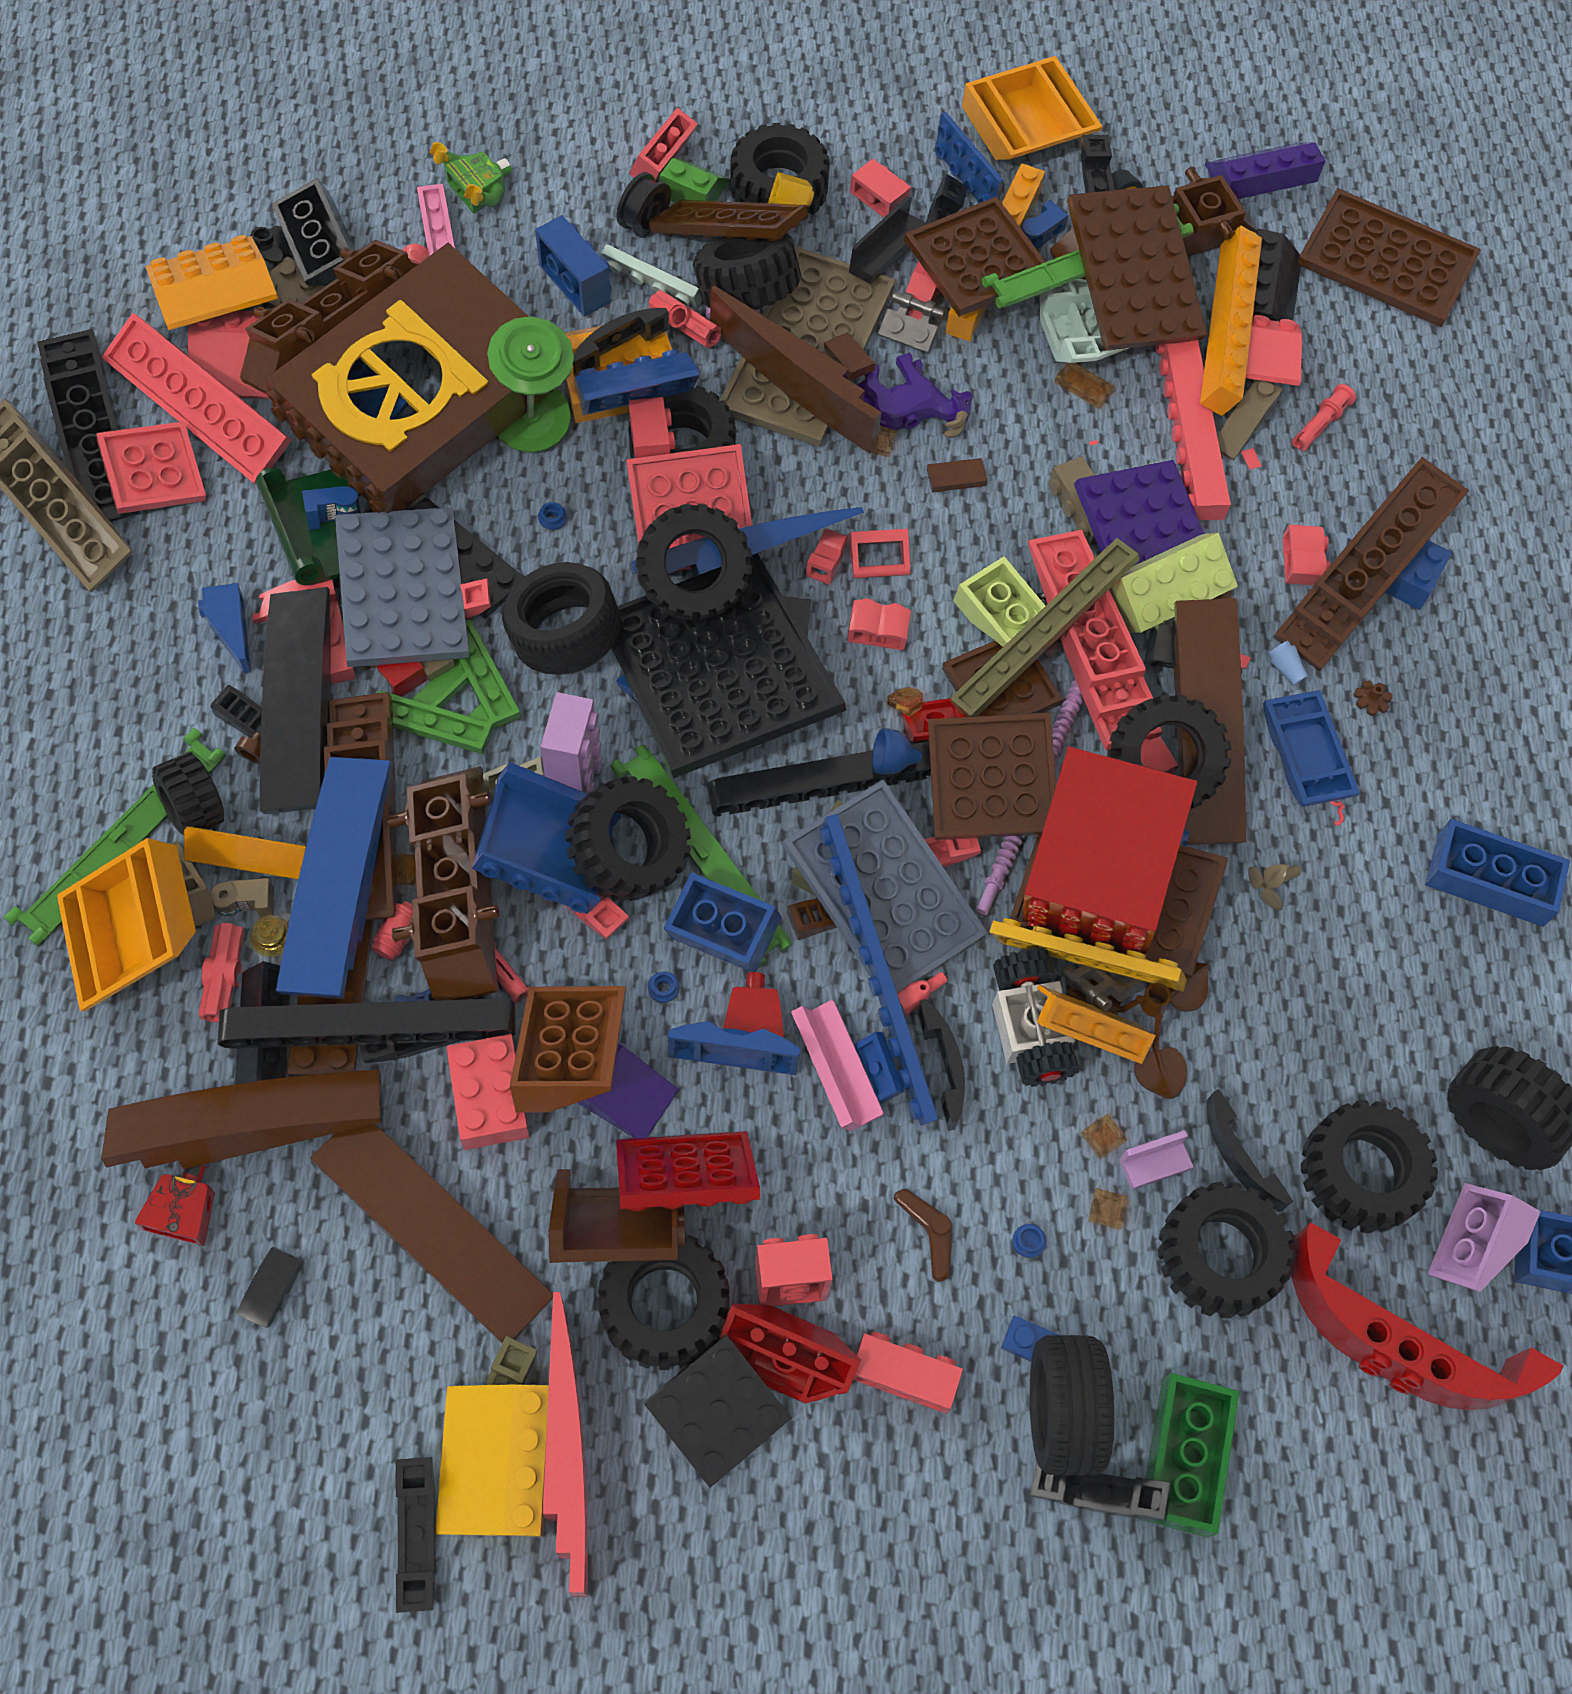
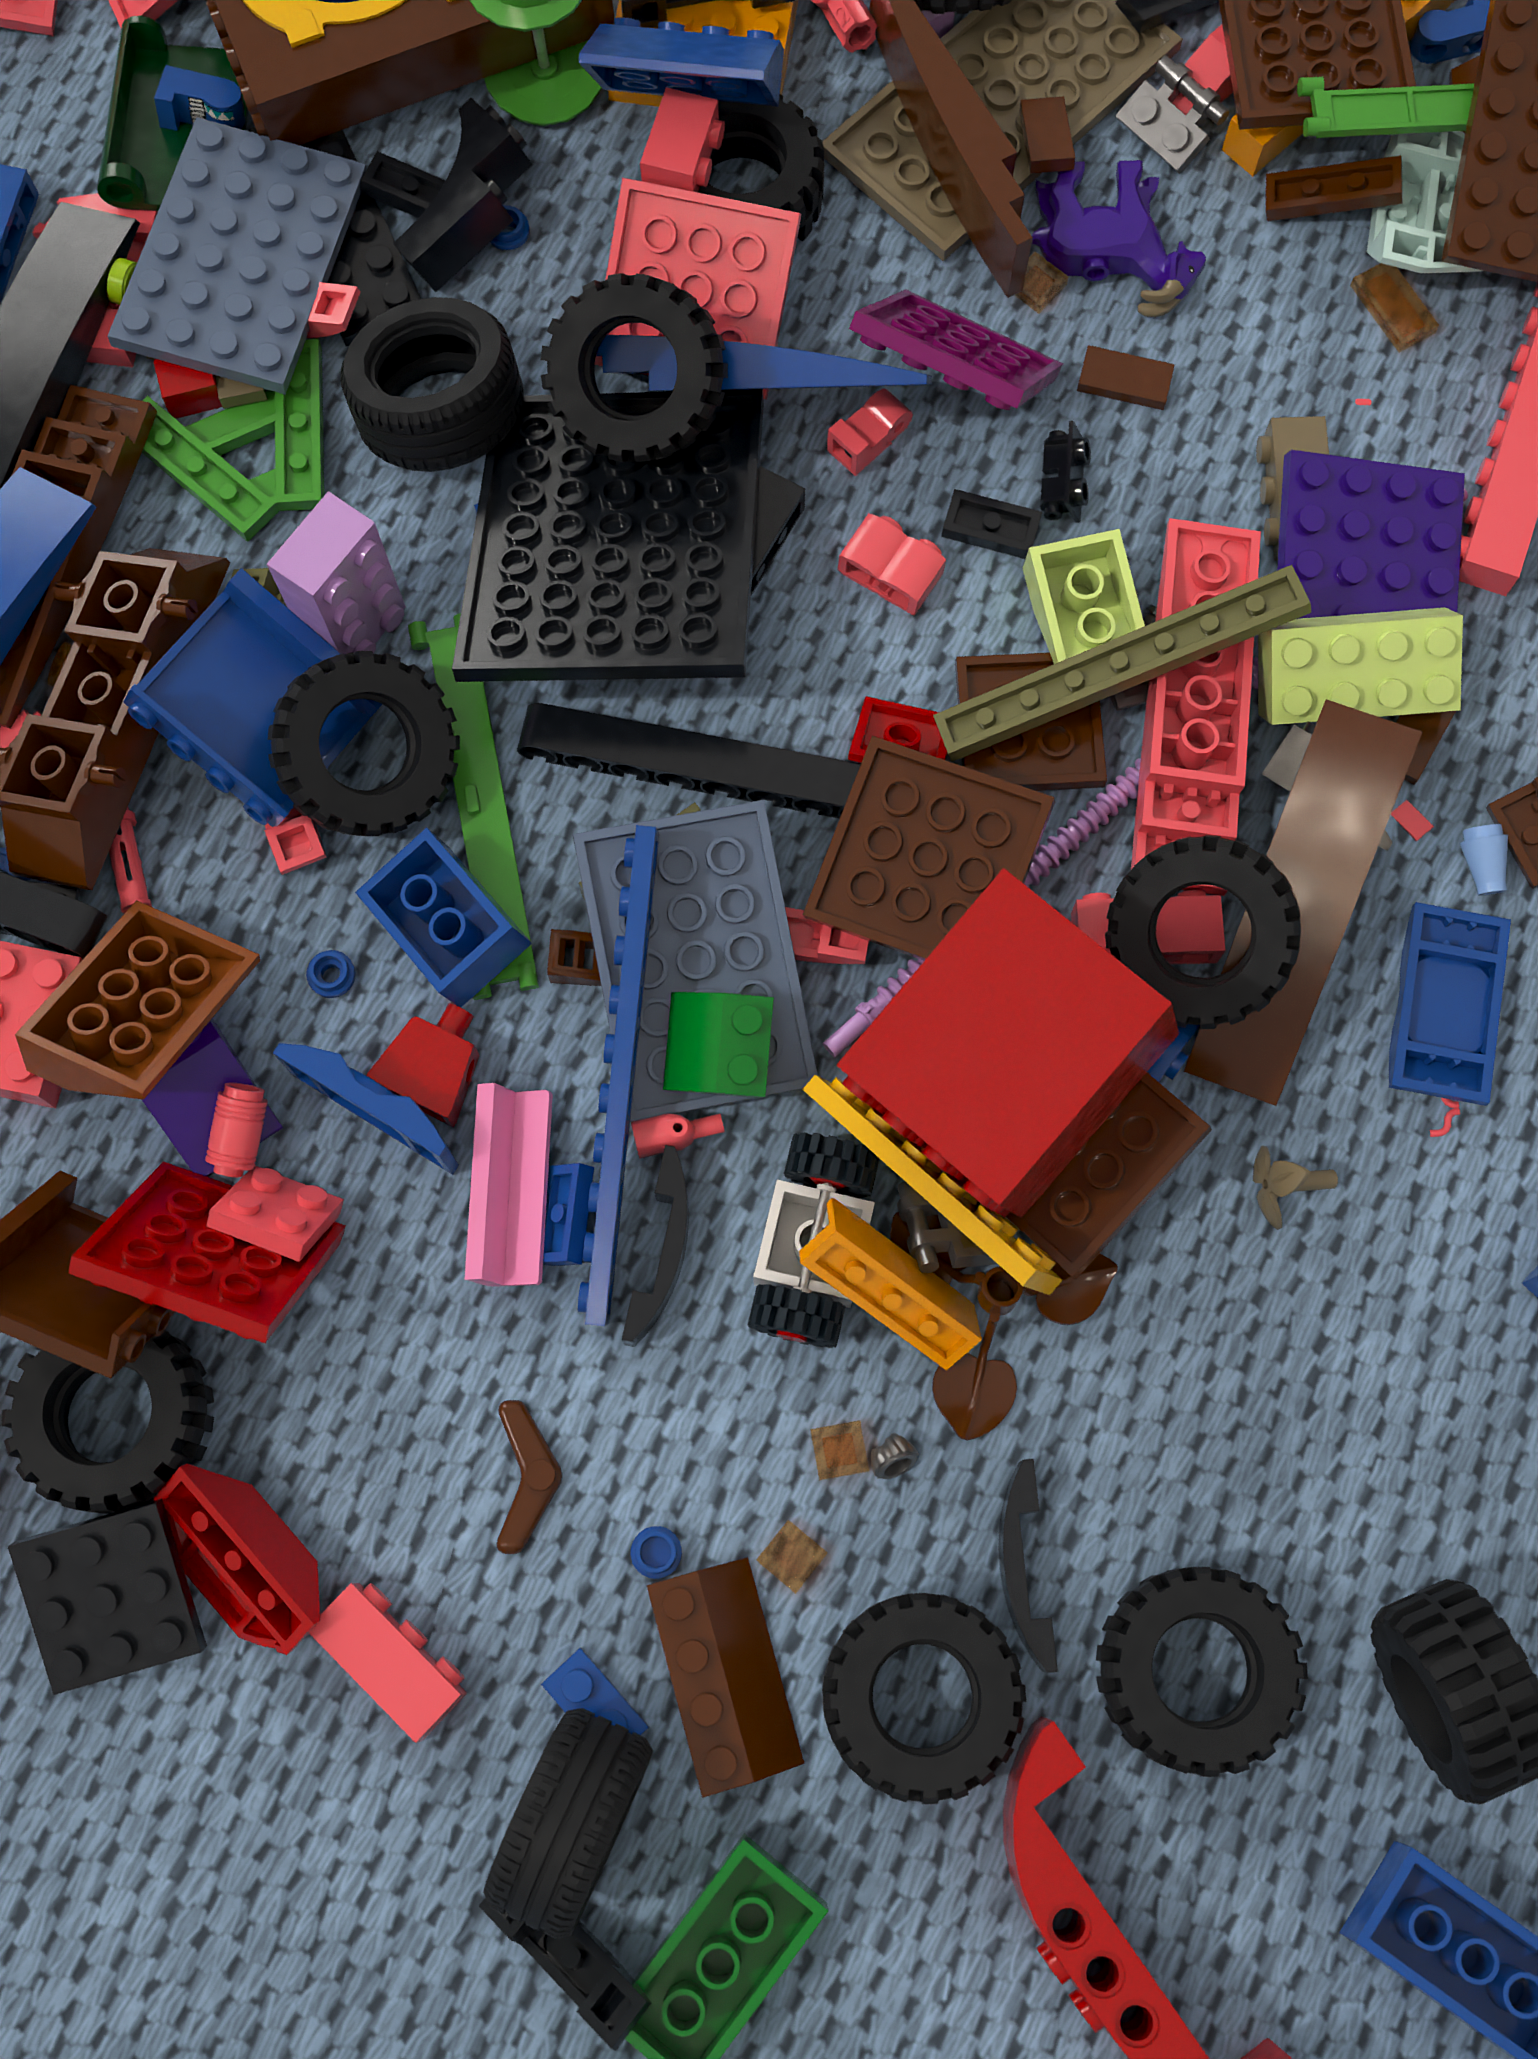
camera: 30 degrees right, 10 degrees up
(336, 627) = (119, 279): none -> lime tile
(482, 513) = (399, 185): none -> black plate
(529, 506) = (471, 201): none -> black arch
(658, 1098) = (236, 1129): none -> coral head
(707, 1136) = (275, 1212): none -> coral plate
(793, 1271) = (284, 1454): coral brick -> none
(863, 488) = (956, 347): none -> magenta plate
(877, 537) = (953, 429): coral tile -> none
(893, 752) = (805, 766): blue helmet -> none
(906, 700) = (876, 693): clear orange tile -> none
(924, 582) = (991, 524): none -> black plate
(925, 928) = (718, 1044): none -> green slope
(946, 530) = (1066, 456): none -> black hinge
(1022, 332) = (1334, 188): none -> reddish brown plate
(1104, 1293) = (725, 1676): none -> reddish brown slope
(1137, 1126) = (893, 1457): none -> flat silver piece
(1156, 1160) = (895, 1521): lavender panel -> none
(1482, 1237) = (1314, 1854): lavender slope -> none

